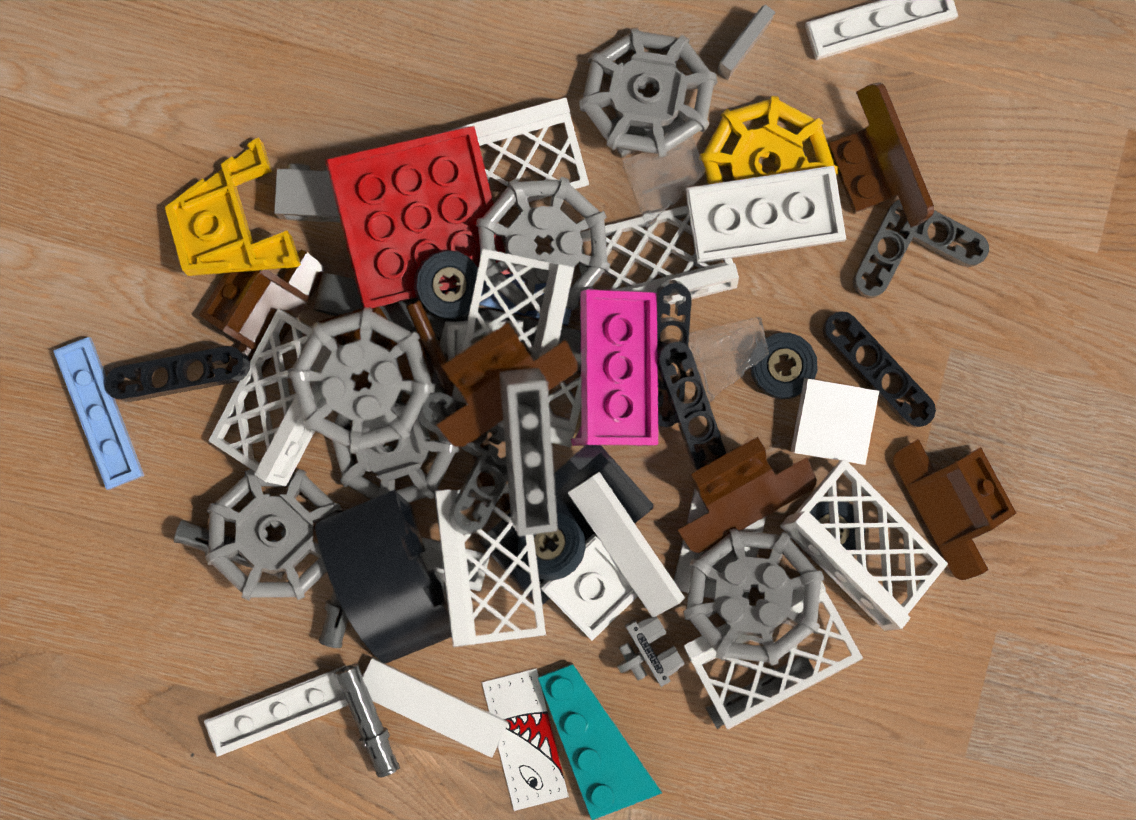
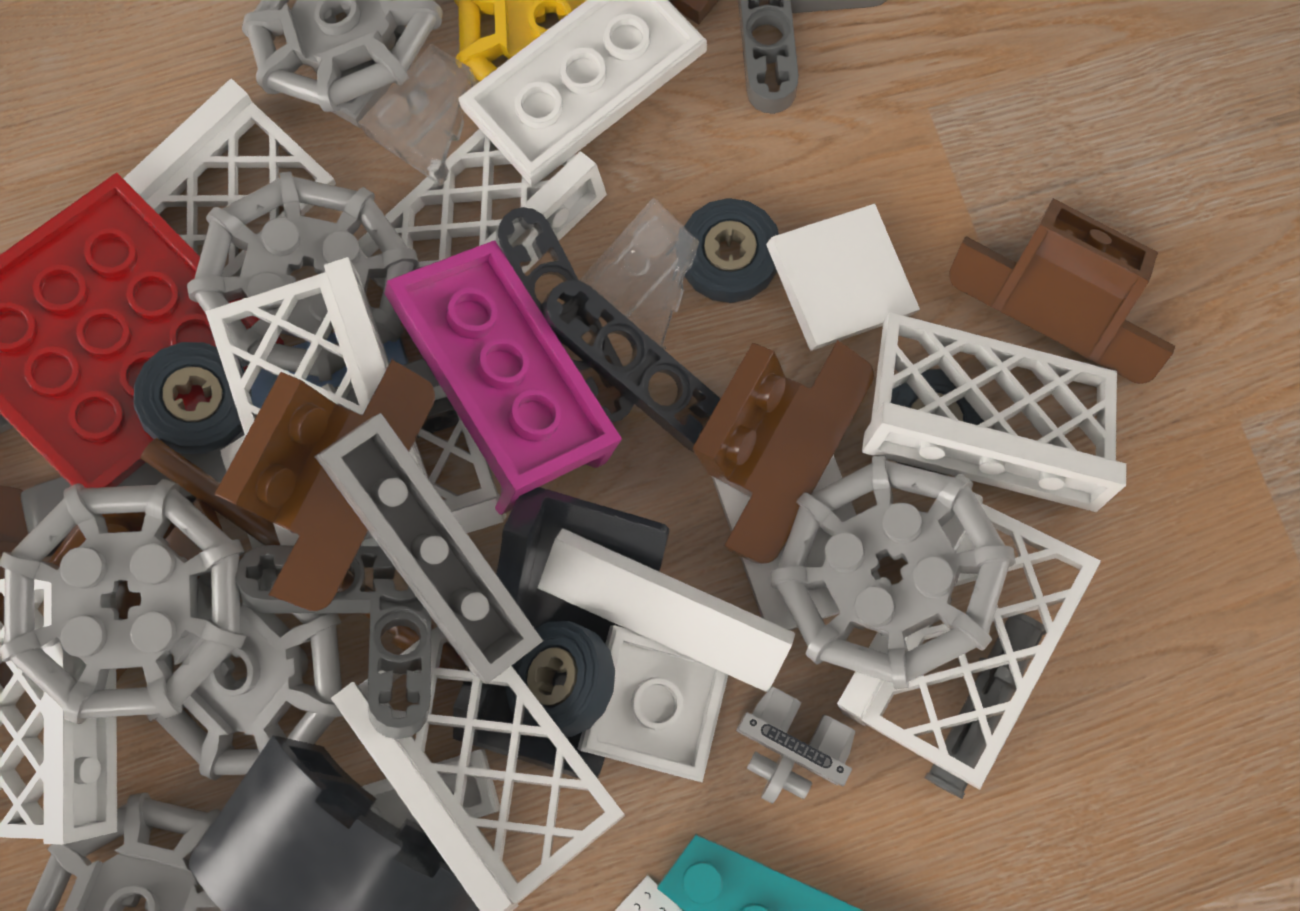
camera: 20 degrees left, 10 degrees down
(883, 364) = (857, 172): black beam -> none

